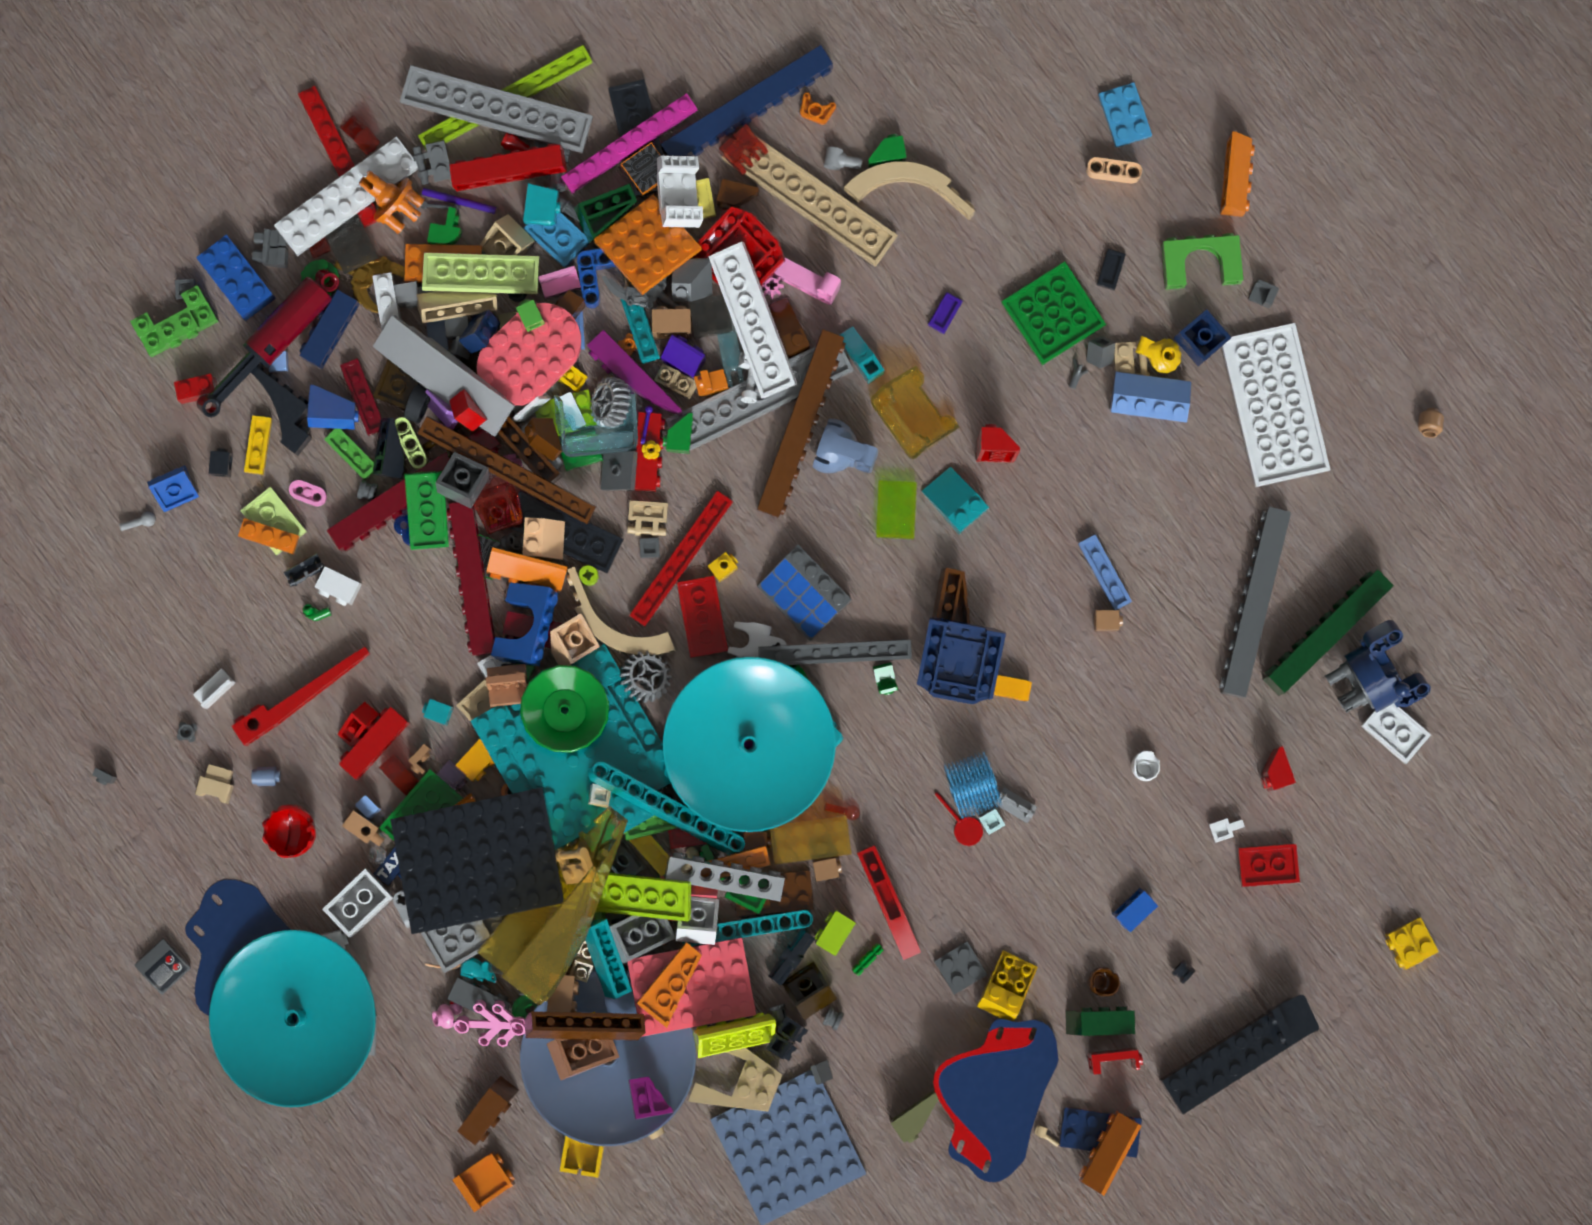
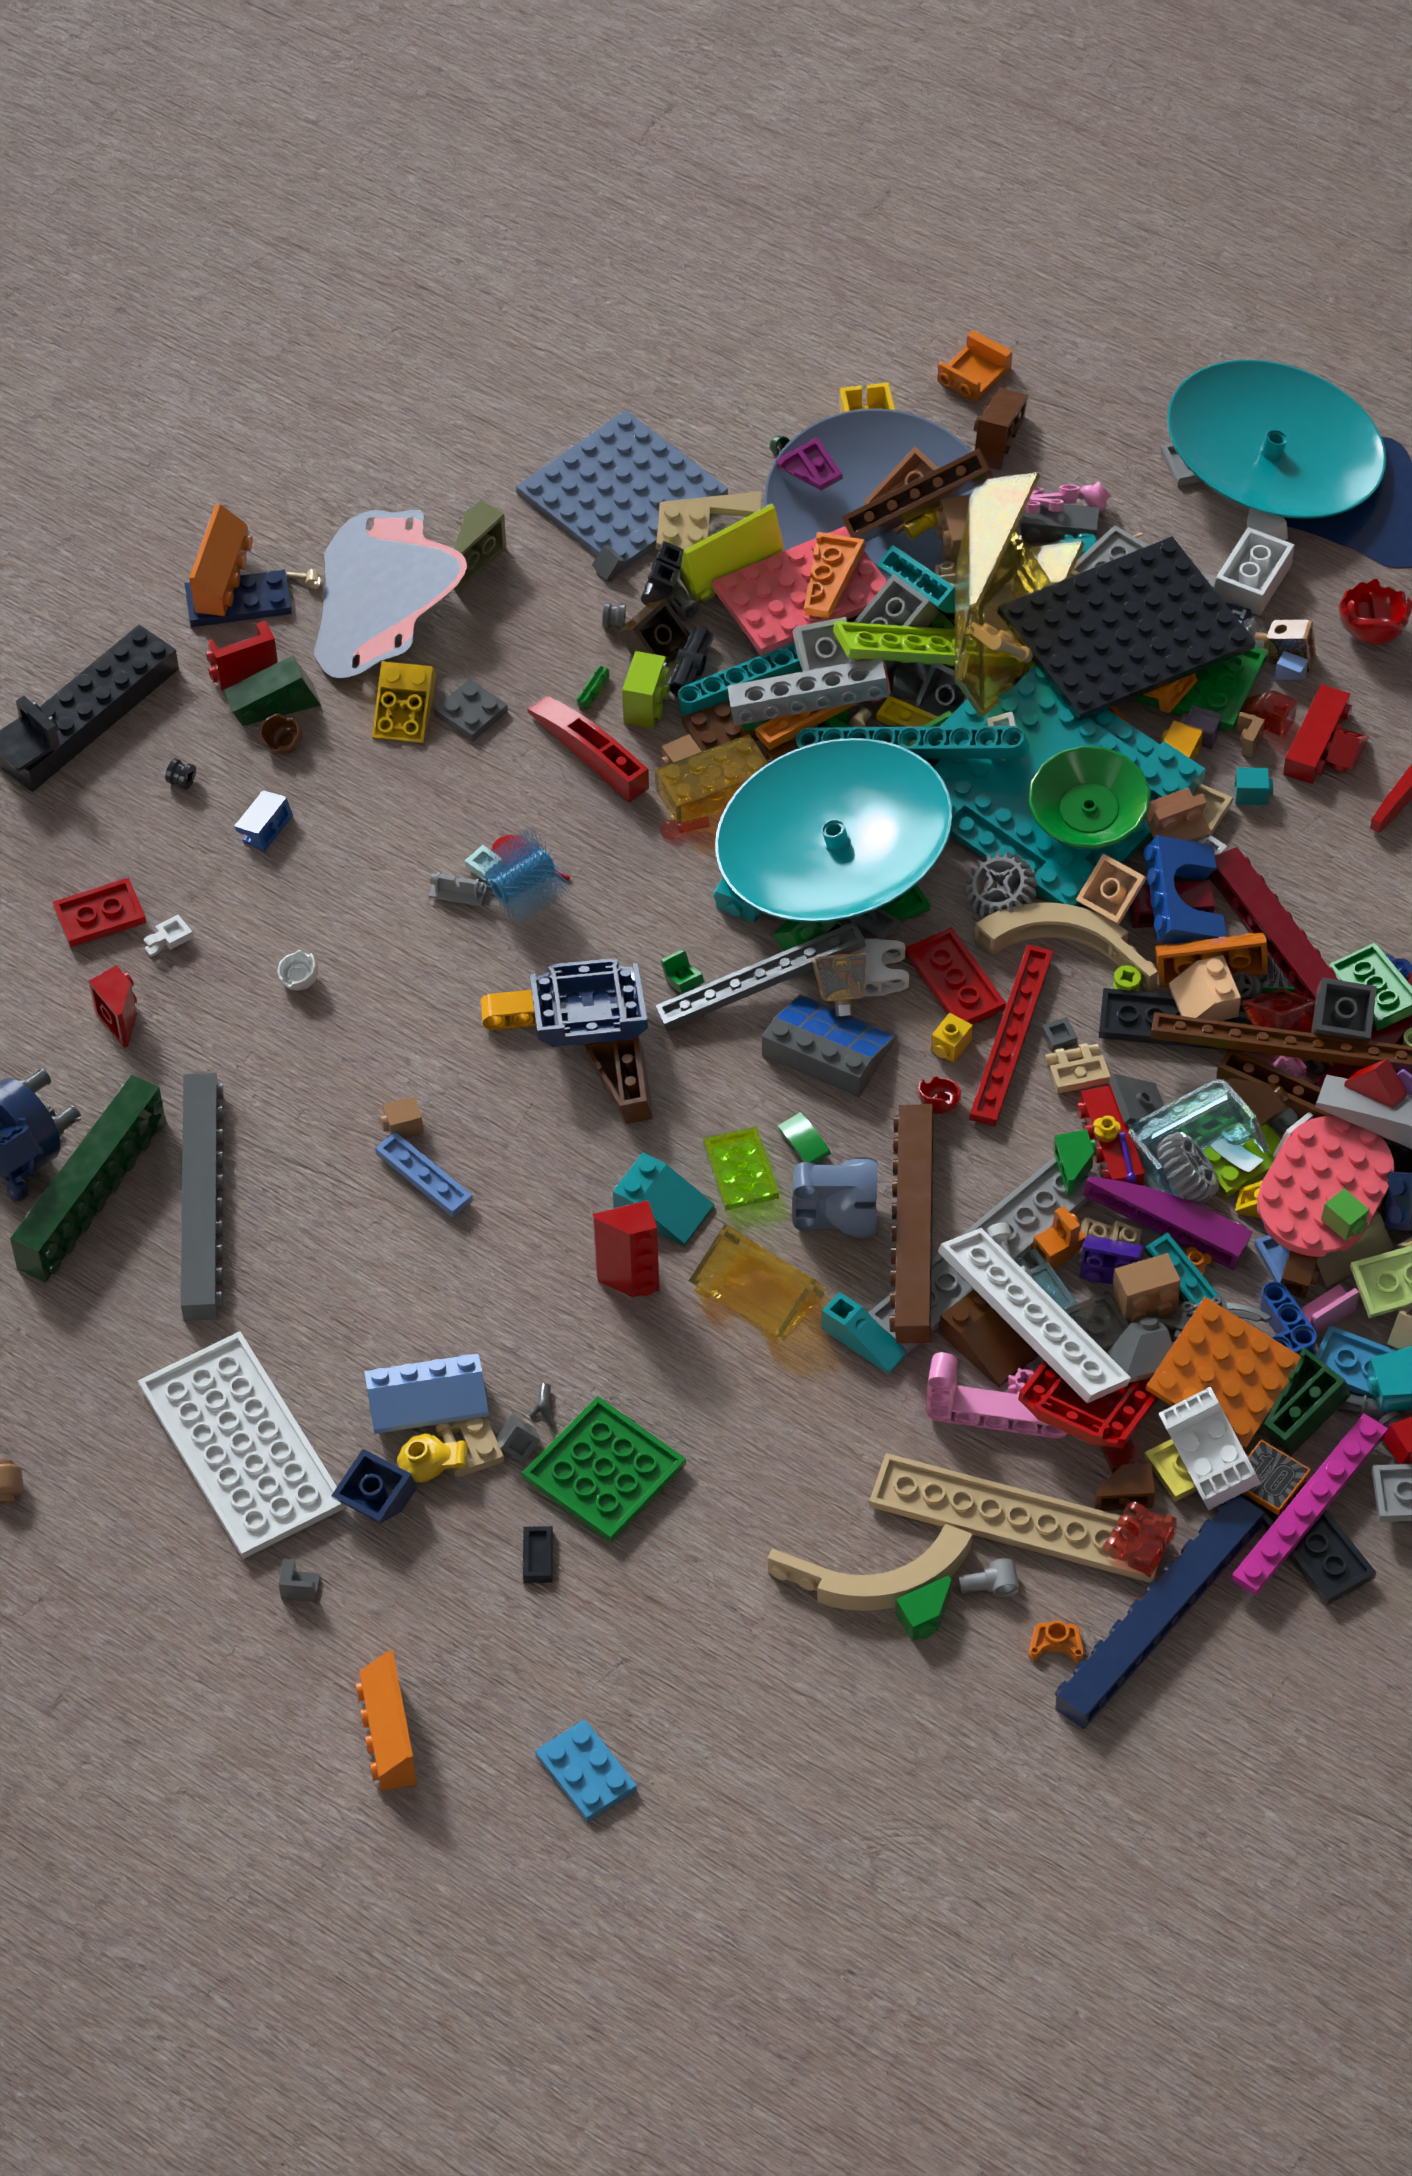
camera: 165 degrees right, 30 degrees down
(657, 1149) = (780, 441): none -> dark green hinge
(747, 523) = (941, 1093): none -> red hair
(783, 626) = (841, 979): none -> torso
(847, 517) = (804, 1139): none -> green slope
(945, 313) = (762, 1429): dark purple tile -> none
(1122, 166) = (567, 1692): light nougat beam -> none
(1224, 248) = (379, 1625): bright green arch -> none

